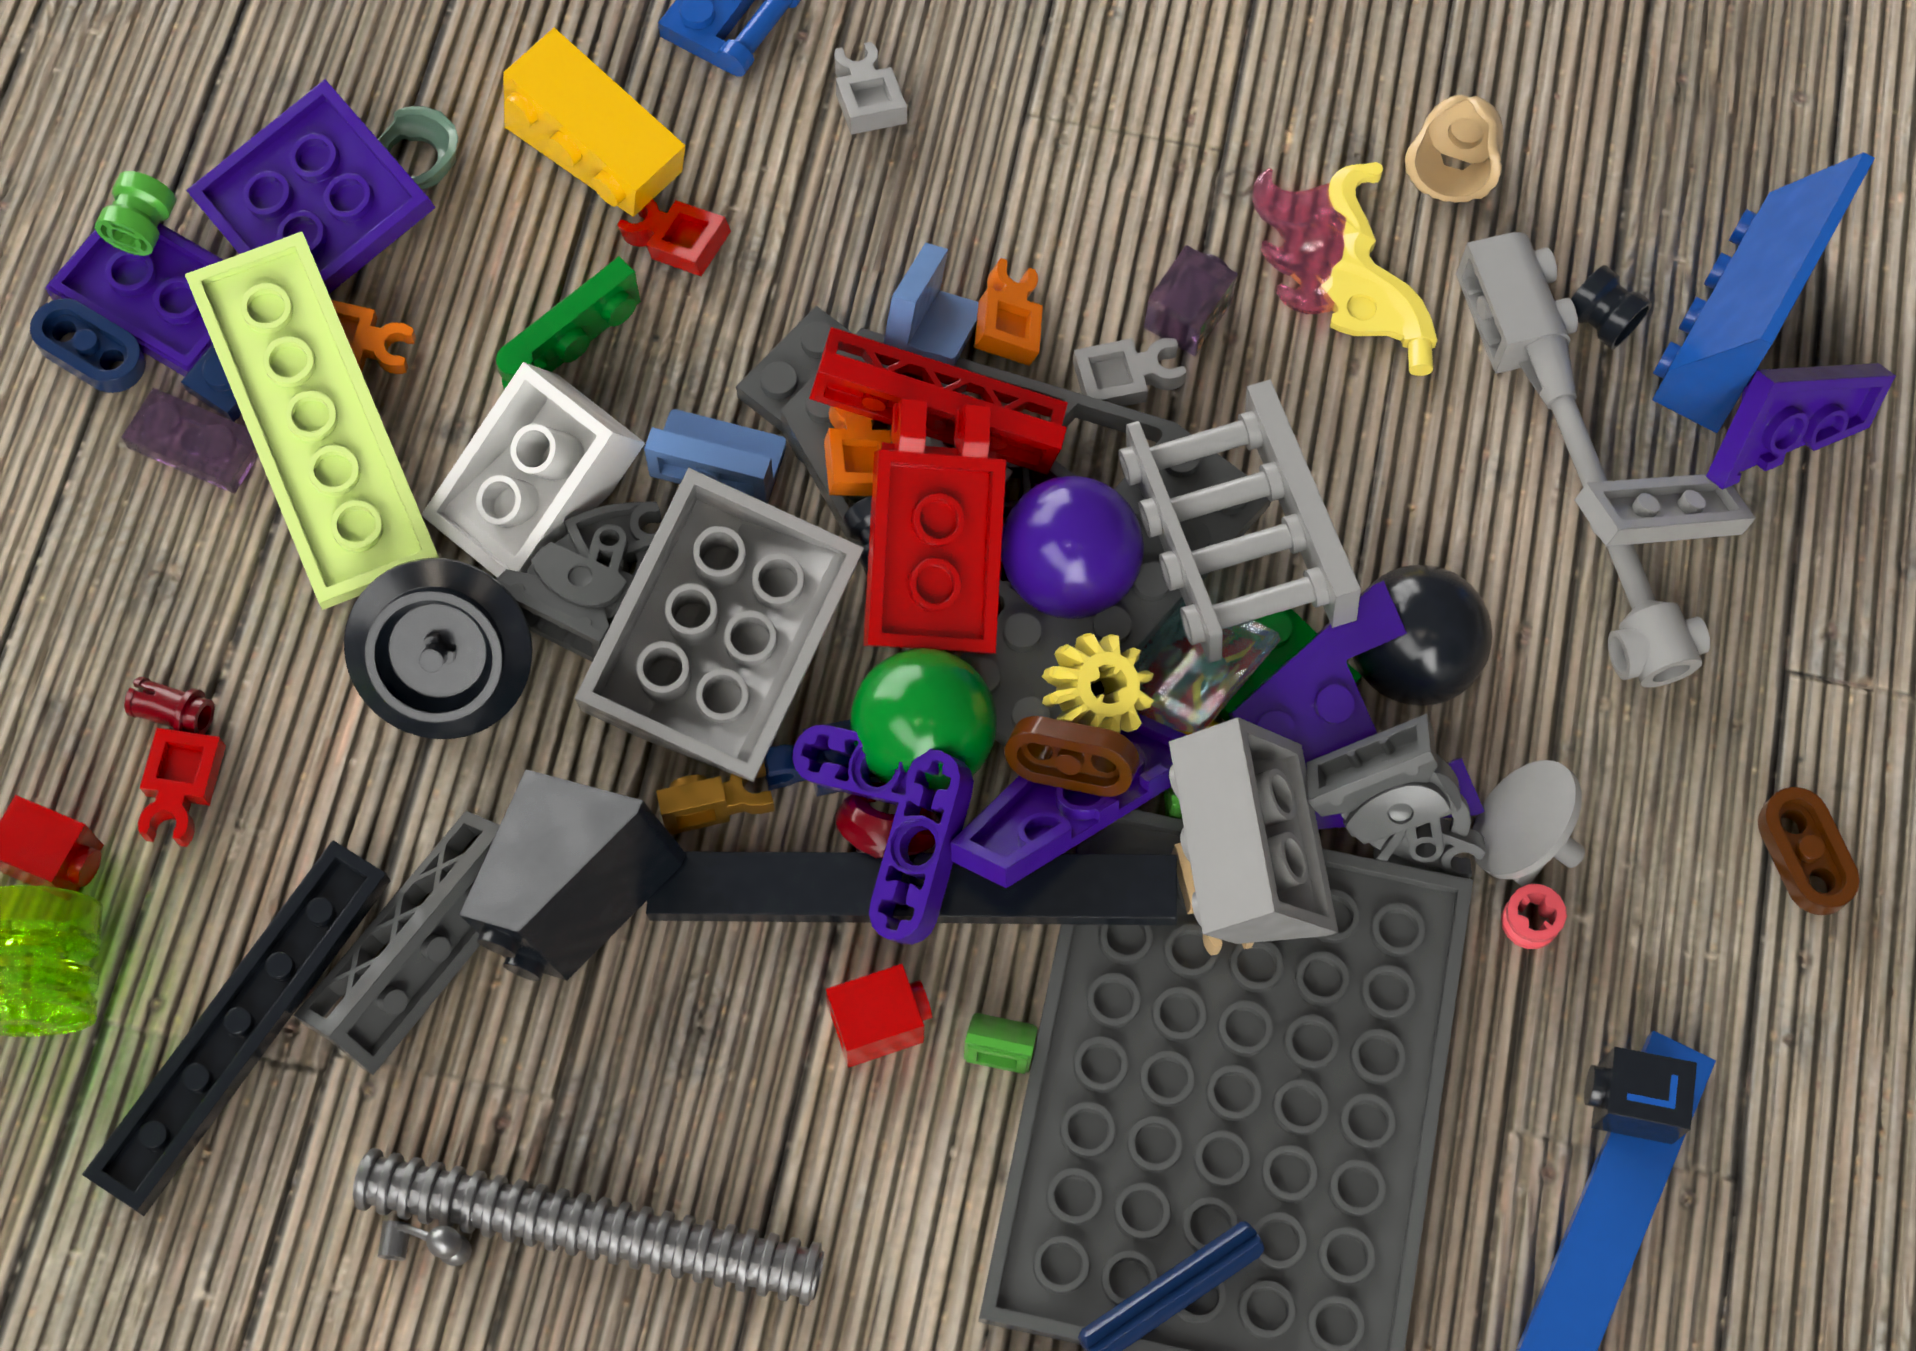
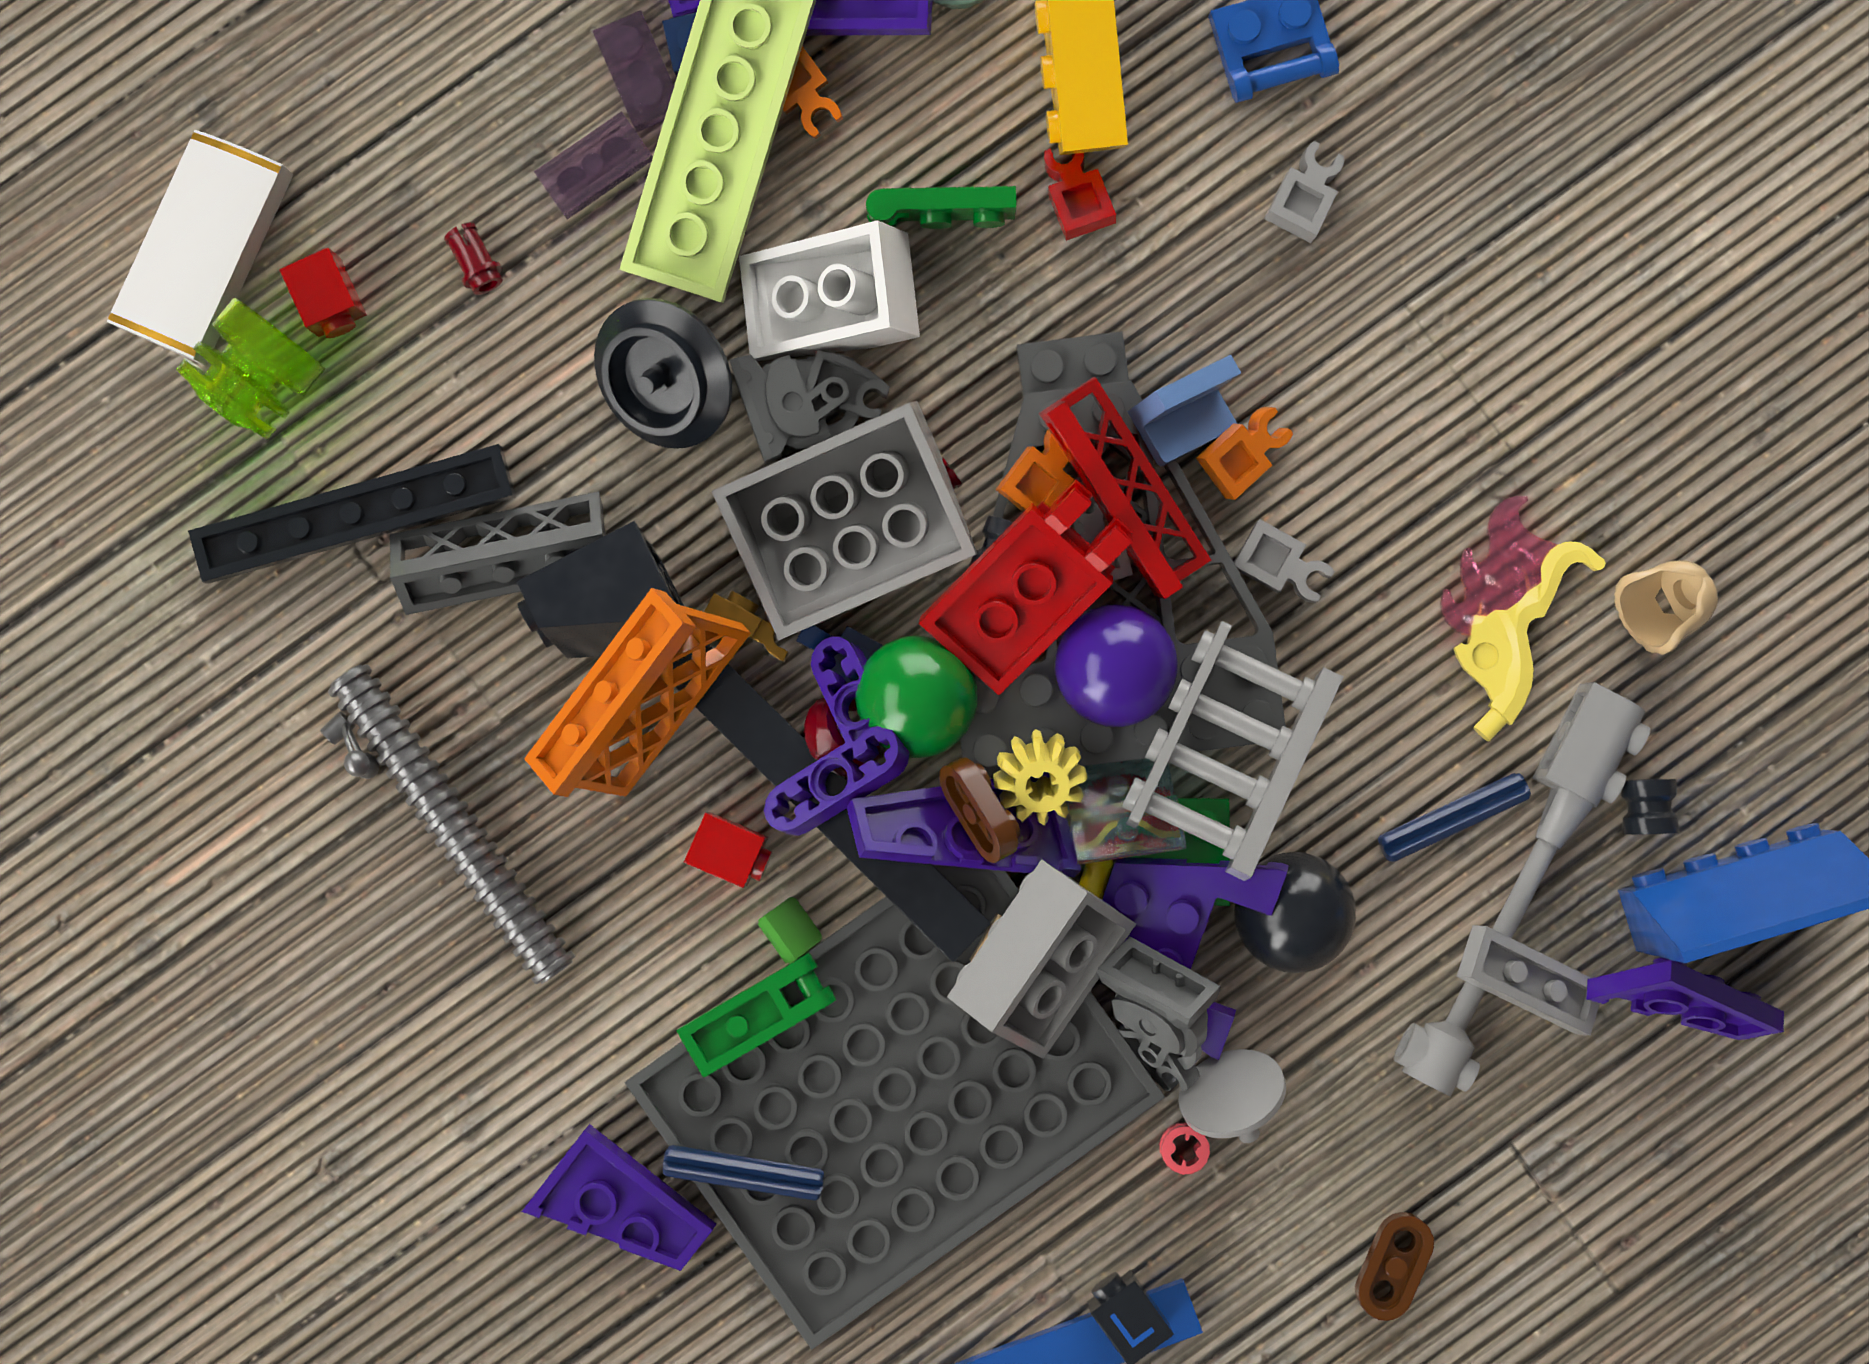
camera: 45 degrees right, 20 degrees up
(178, 772) = (445, 312): red plate -> none
(218, 542) = (594, 165): none -> clear purple plate
(641, 911) = (626, 675): none -> orange fence
(718, 449) = (963, 381): medium blue panel -> none
(1042, 1135) = (754, 1016): none -> green plate
(1191, 299) = (1375, 549): clear purple brick -> none
(1467, 451) = (1454, 817): none -> dark blue axle

